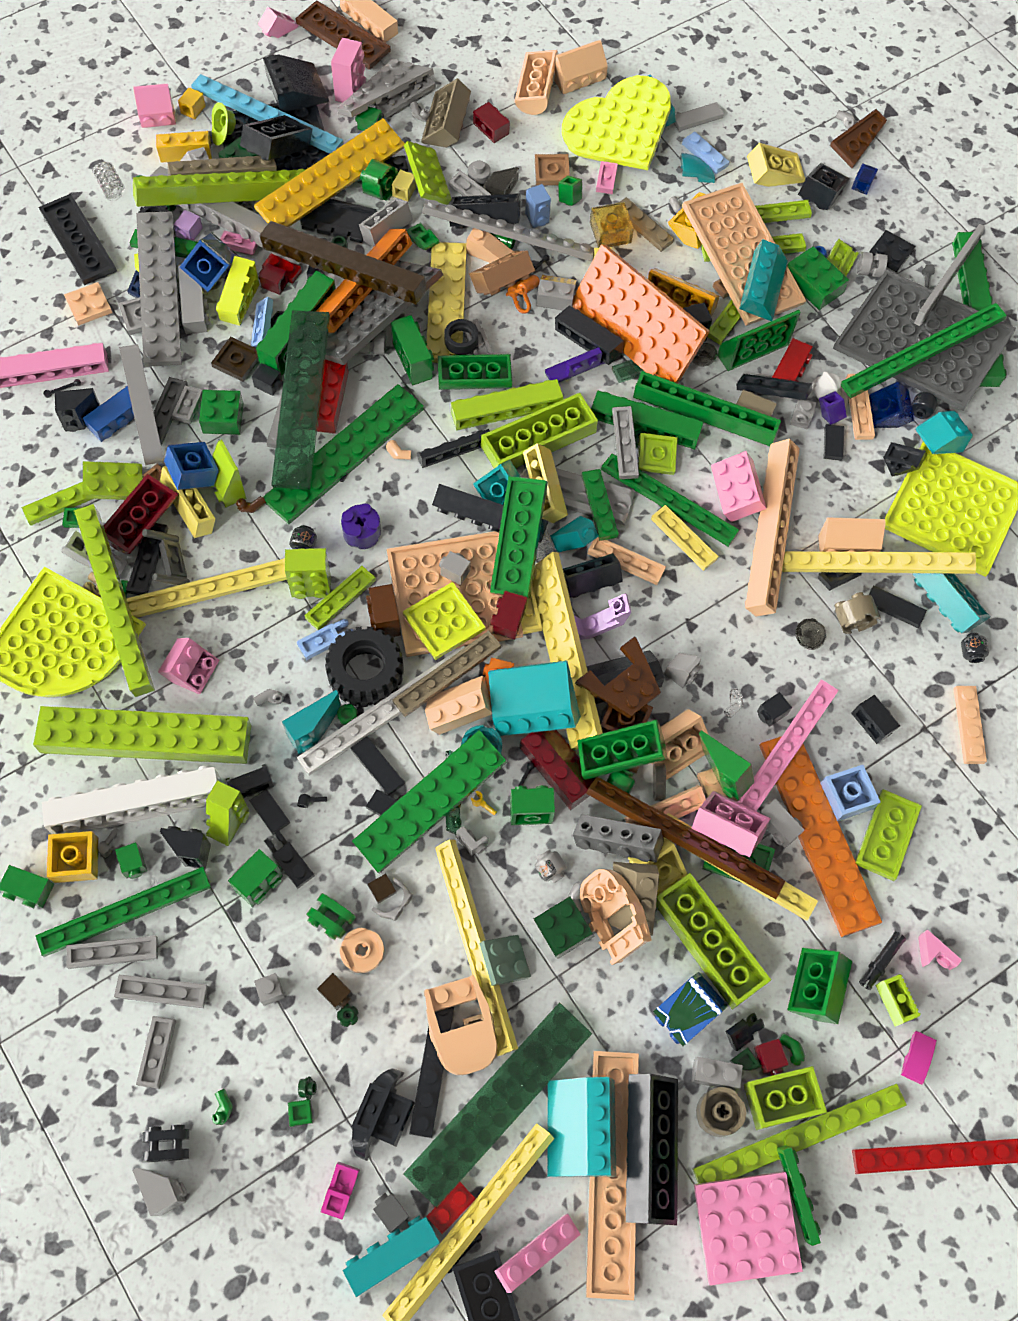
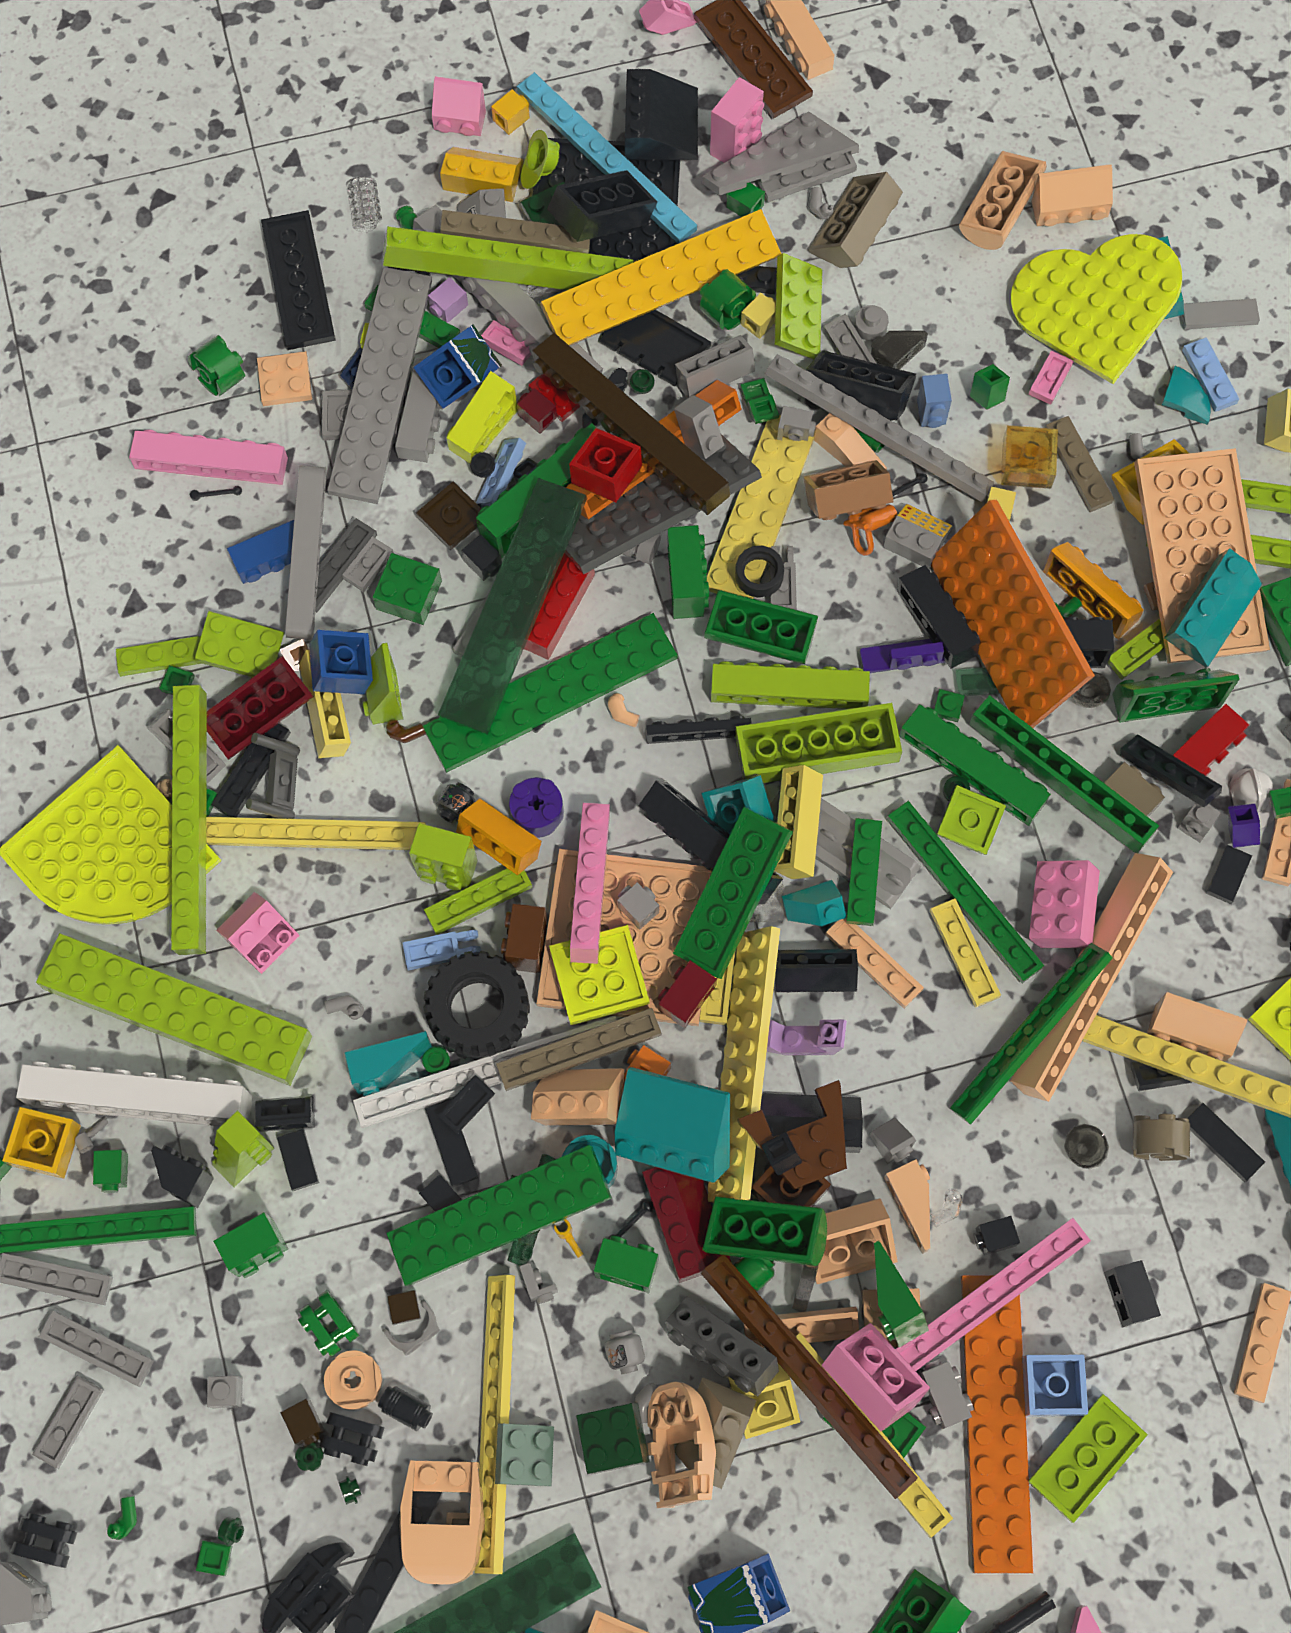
camera: 25 degrees right, 5 degrees up
(37, 304) = (217, 366): none -> green brick
(73, 406) = (219, 530): black slope -> none
(247, 321) = (482, 465): none -> black plate
(290, 861) = (303, 1233): black hinge -> none
(304, 799) = (345, 1159): black hand -> none
(336, 289) = (605, 465): none -> red brick
(344, 551) = (499, 836): none -> light orange brick
(365, 1000) = (360, 1453): none -> black brick
(379, 735) = (466, 1104): none -> black tile
(386, 1028) = (350, 1490): none -> dark green plate
(388, 249) = (699, 426): none -> light grey brick
(407, 957) = (405, 1408): none -> black head
(417, 561) = (590, 883): none -> bright pink brick
(453, 241) = (796, 424): none -> light grey brick
(491, 122) = (916, 247): dark red brick -> none
(551, 168) = (976, 343): medium nougat plate -> none
(615, 387) = (949, 705): none -> green plate
(615, 693) = (781, 1153): none -> black slope
(625, 442) = (929, 794): light grey plate -> none
(708, 702) = (911, 1192): none -> light nougat slope
(711, 941) = (796, 1522): lime brick -> none
(747, 573) = (1031, 1033): none -> green tile

